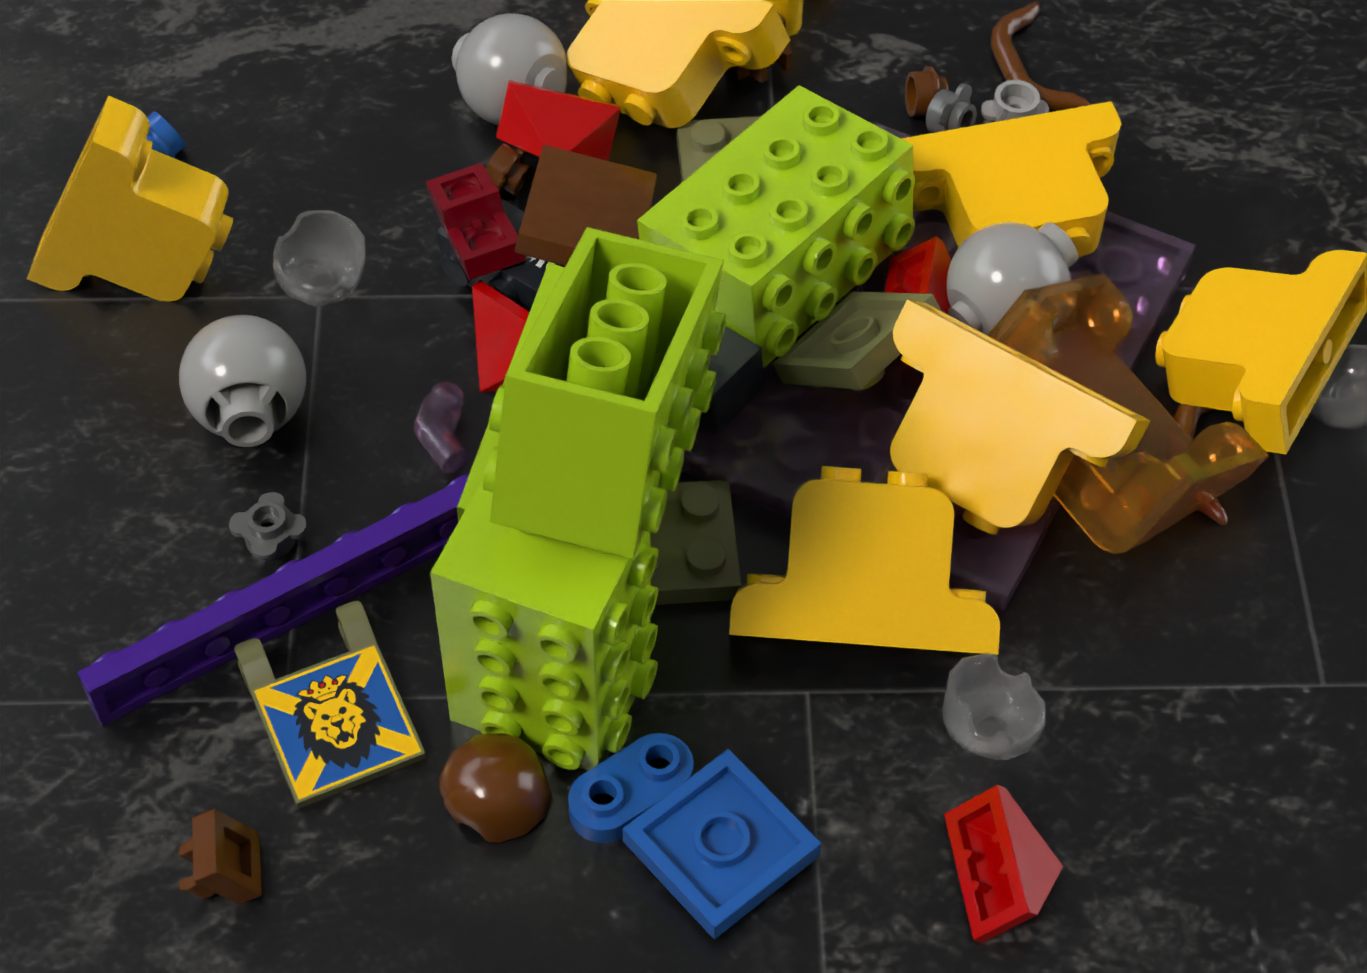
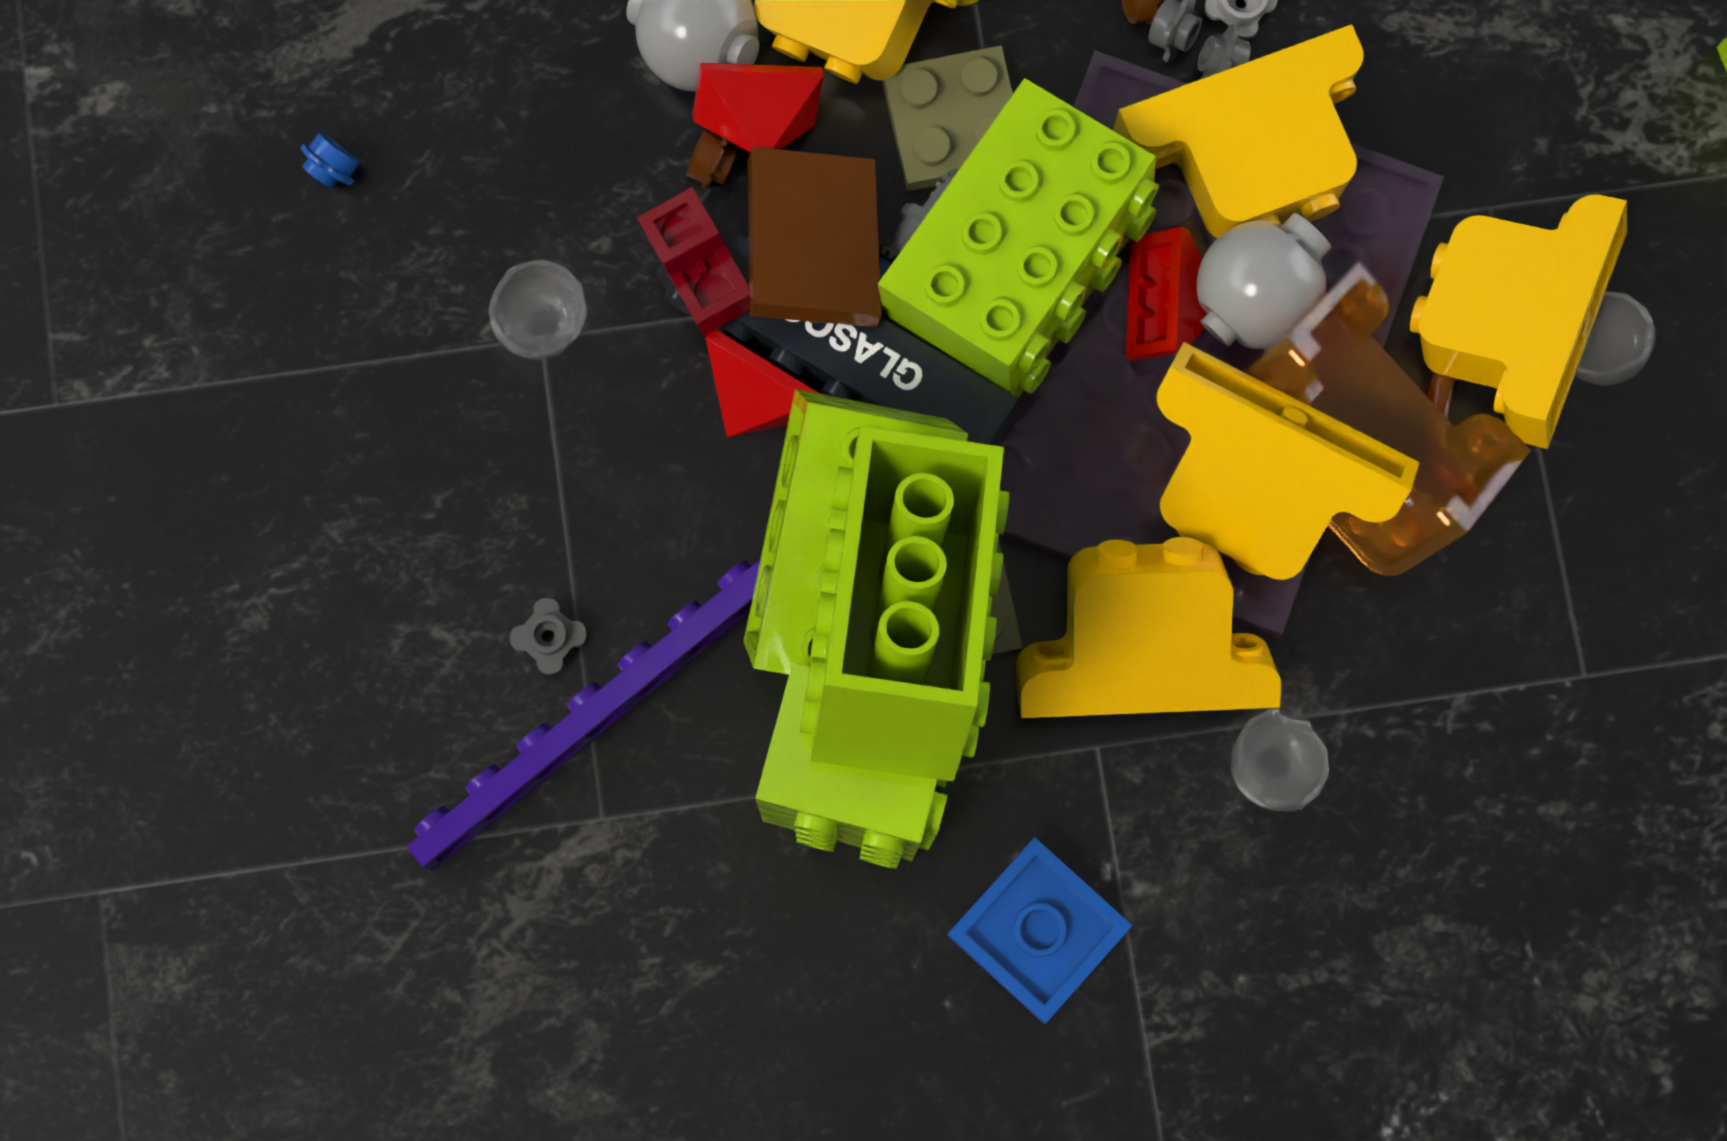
camera: 10 degrees left, 25 degrees up
(132, 215) = (335, 306): yellow brick -> none
(223, 858) = (583, 1009): reddish brown tile -> none
(242, 378) = (493, 484): light grey brick -> none
(335, 718) = (655, 839): flag -> none
(437, 423) = (692, 492): clear purple arm -> none
(495, 786) = (819, 895): reddish brown hair -> none
(630, 782) = (946, 877): blue plate -> none
(849, 344) = (1111, 370): olive plate -> none
(999, 862) = (1297, 917): red slope -> none

